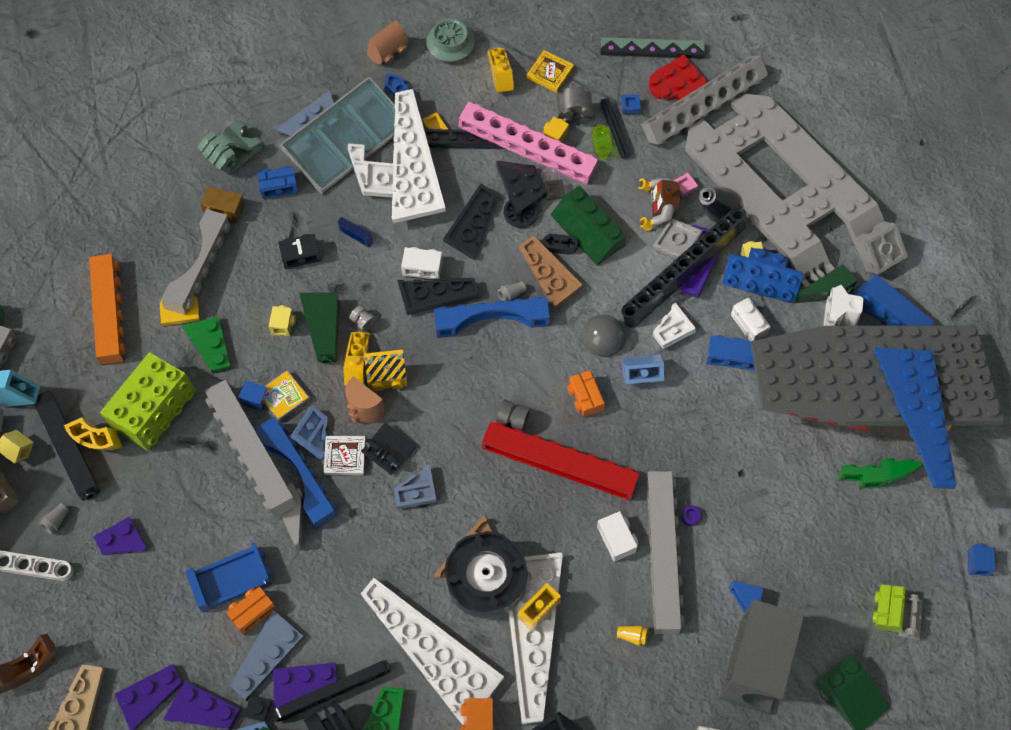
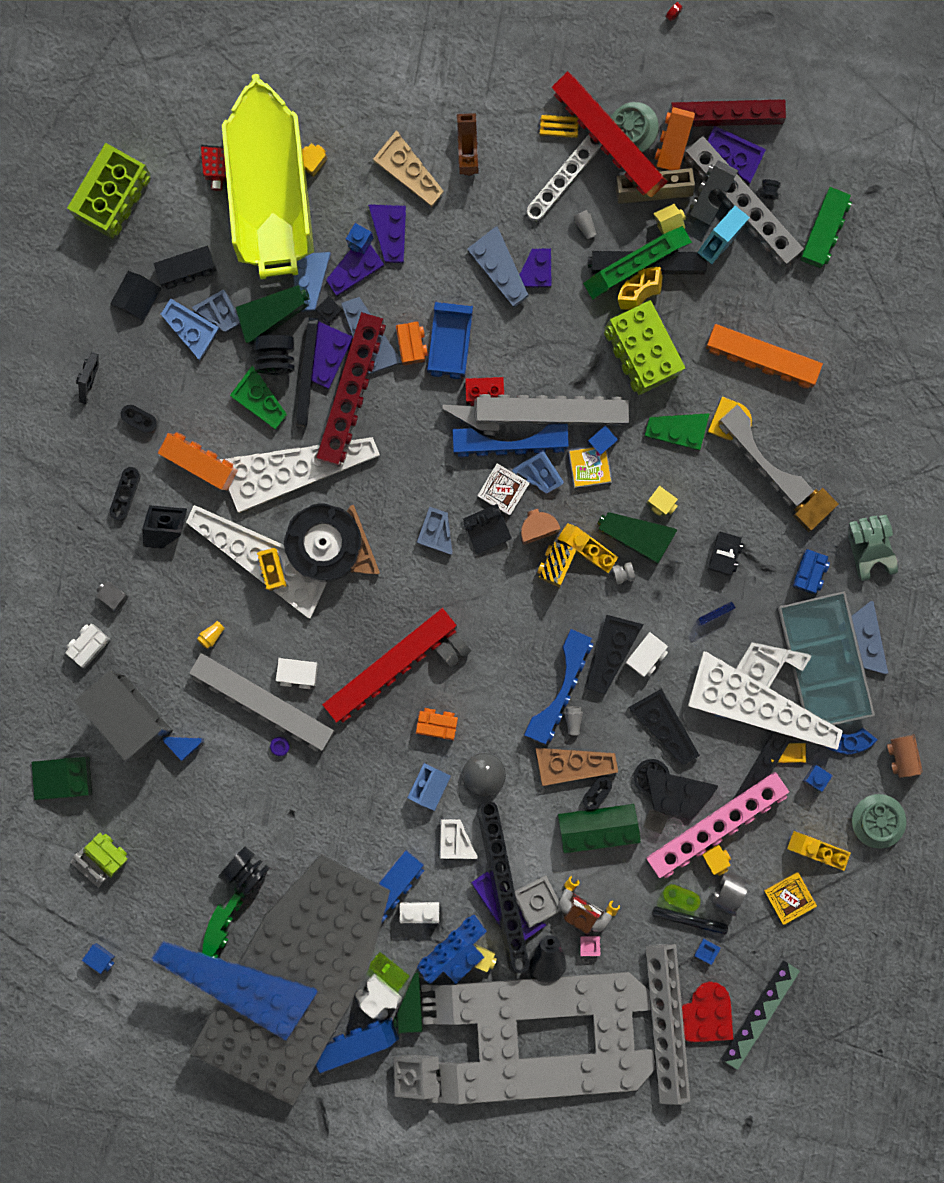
camera: 125 degrees right, 20 degrees up
(72, 449) = (636, 261): none -> green slope
(131, 575) = (497, 263): none -> sand blue wing
(170, 714) = (359, 239): none -> blue brick
(250, 646) = (365, 324): none -> dark red brick
(262, 522) = (478, 386): none -> red brick
(444, 95) = (817, 778): none -> blue brick
(813, 315) = (389, 971): none -> clear neon green tile
(820, 475) = (244, 872): none -> black wheel

